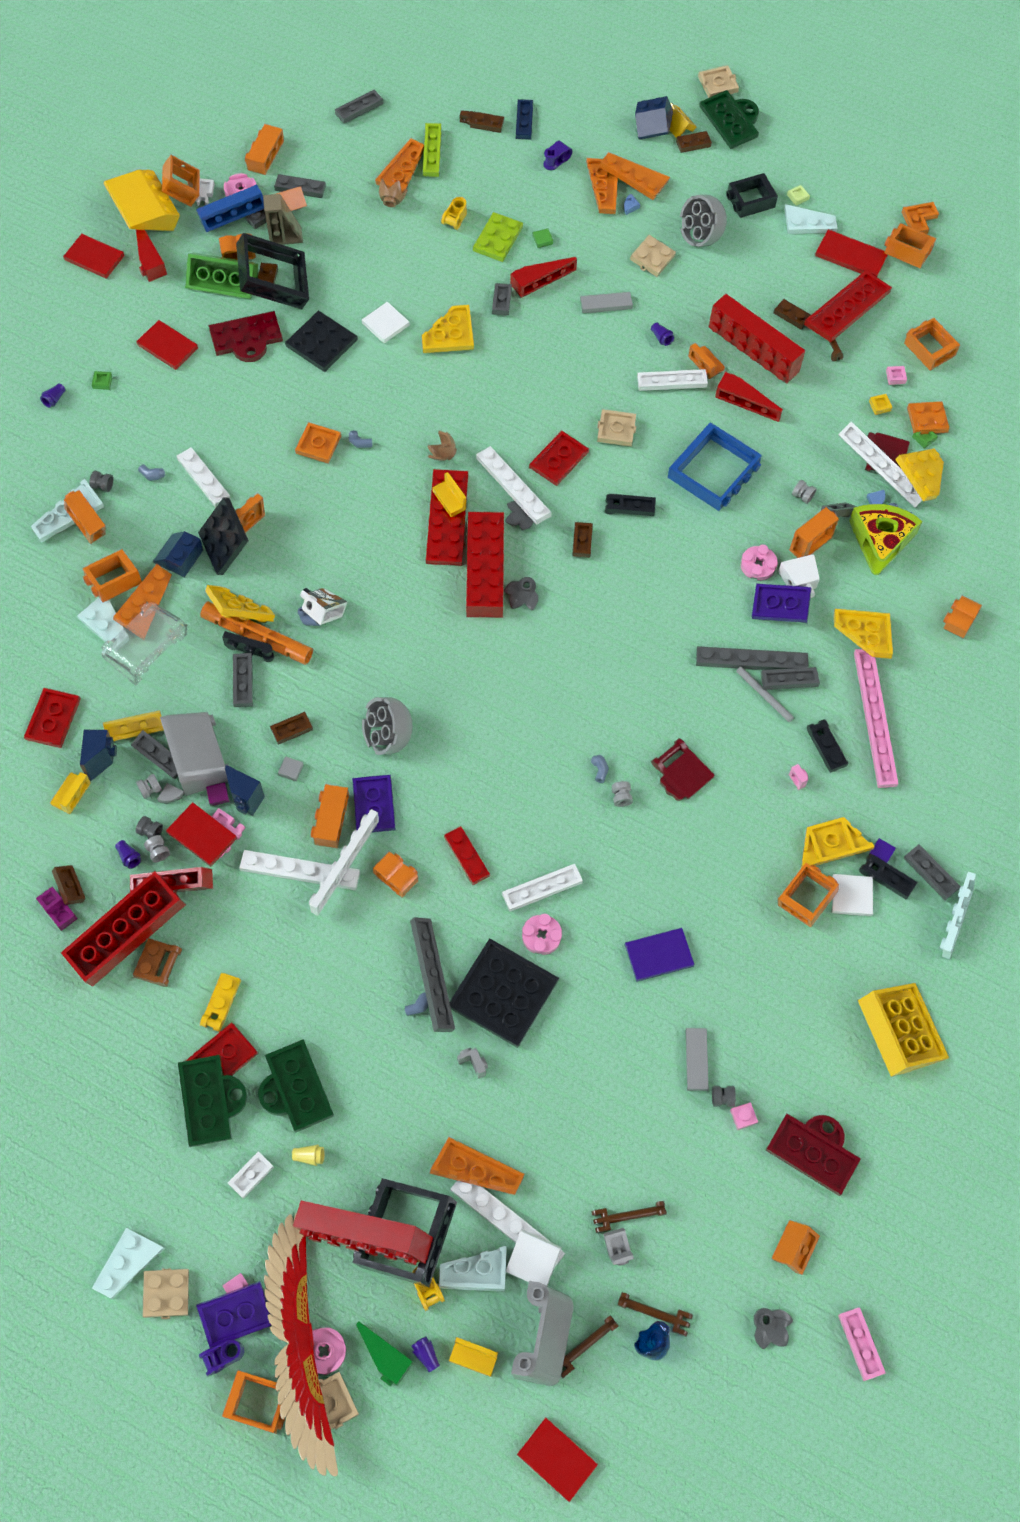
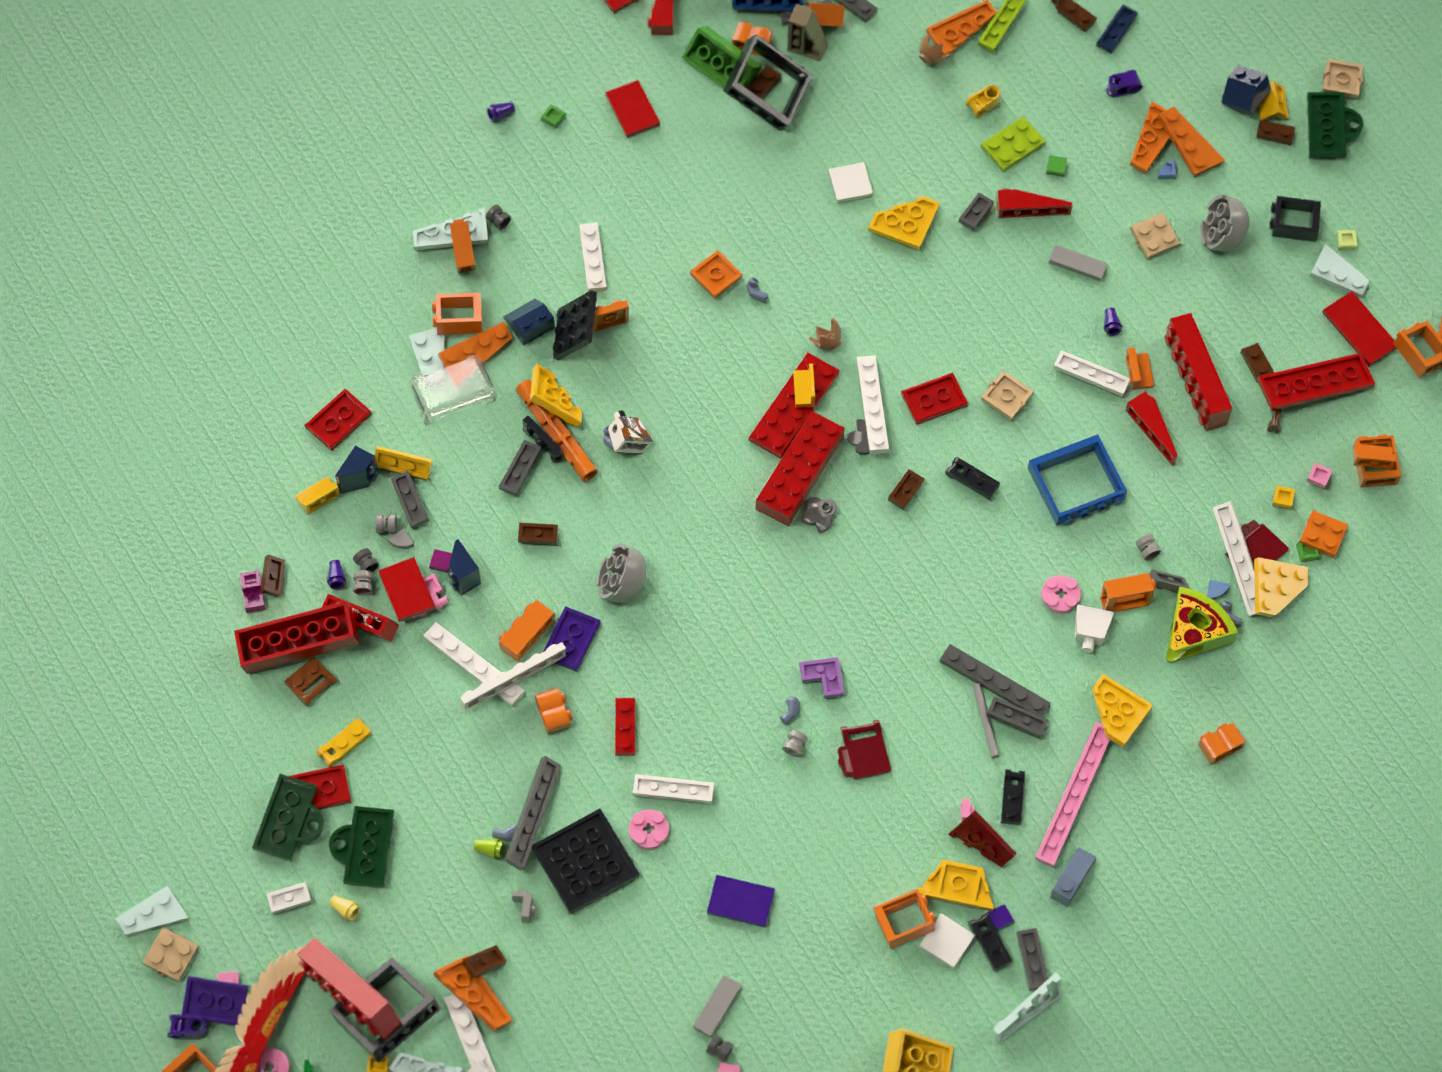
camera: 30 degrees right, 0 degrees up
(151, 474) = (548, 232): sand blue arm -> none
(194, 750) = (441, 510): light grey windscreen -> none
(246, 335) = (711, 133): dark red plate -> none
(290, 768) = (516, 570): light grey tile -> none
(321, 341) = (778, 172): black plate -> none
(411, 1026) = (490, 847): none -> lime cone
(468, 1134) = (484, 961): none -> reddish brown plate
(610, 720) = (826, 671): none -> medium lavender plate
(781, 603) = (1055, 643): dark purple tile -> none
(828, 791) = (984, 838): none -> dark red wing
(919, 787) = (1072, 877): none -> sand blue slope
(932, 338) = (1373, 456): none -> orange panel

